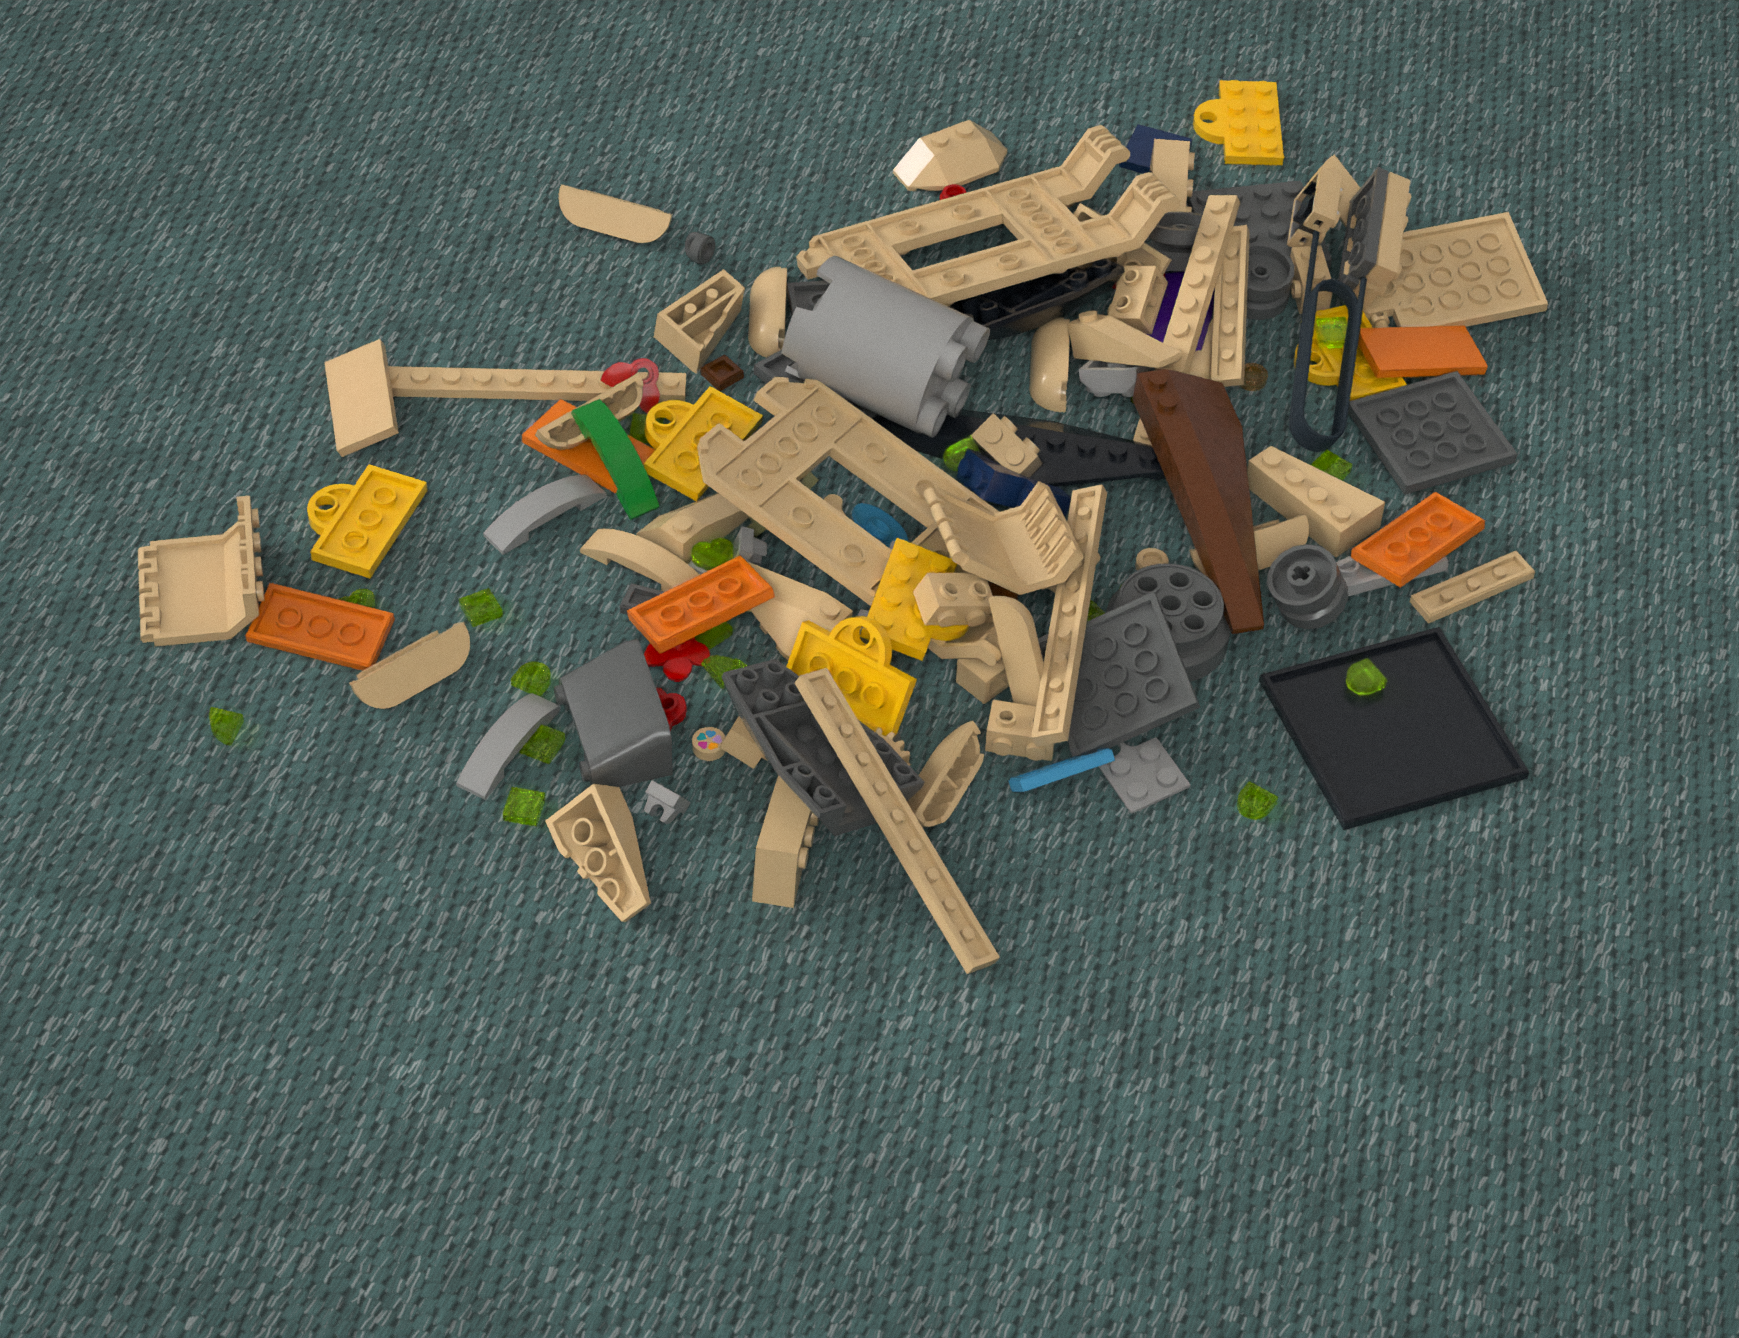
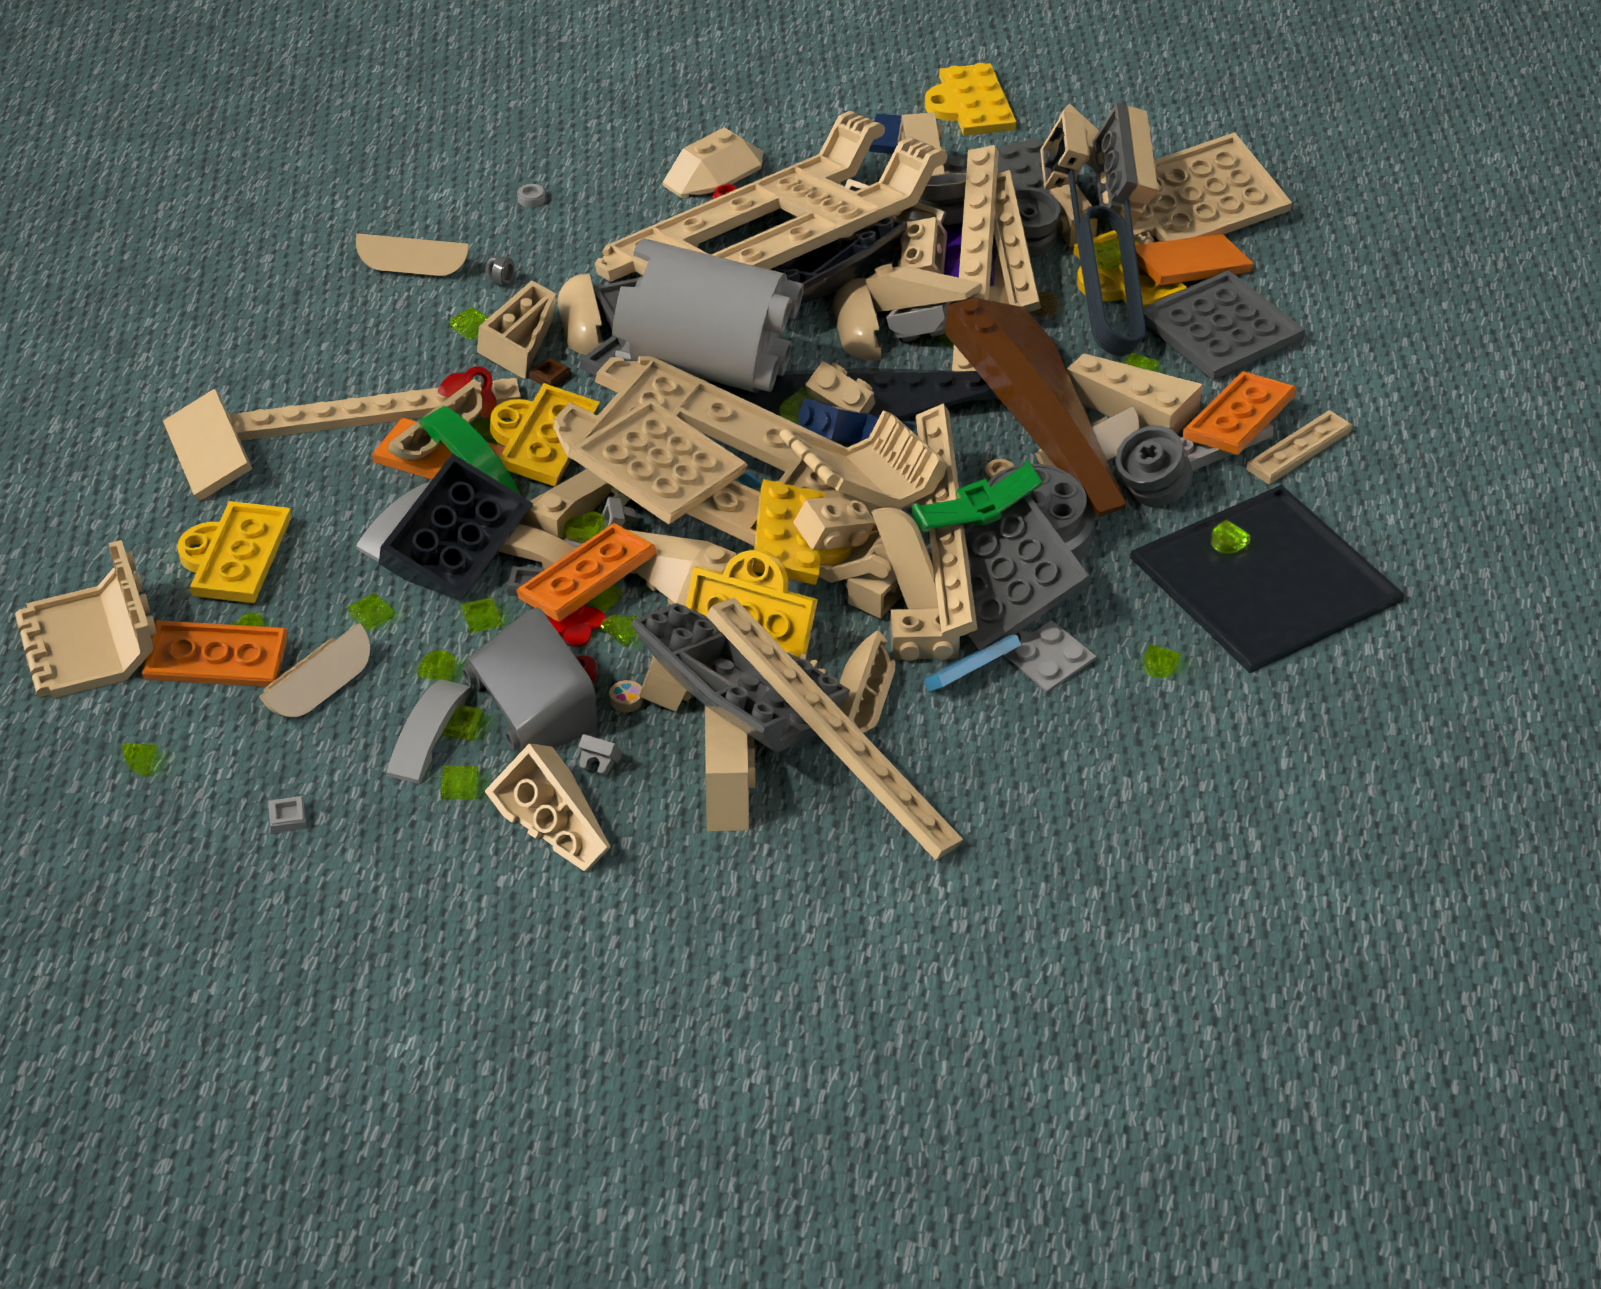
camera: 10 degrees left, 5 degrees down
(351, 810) = (287, 814): none -> light grey tile
(579, 535) = (453, 529): none -> black slope
(588, 630) = (481, 615): none -> clear neon green tile
(654, 301) = (468, 322): none -> clear neon green tile
(753, 164) = (531, 195): none -> light grey tile
(794, 501) = (658, 461): none -> tan tile
(1105, 602) = (978, 501): none -> green plate

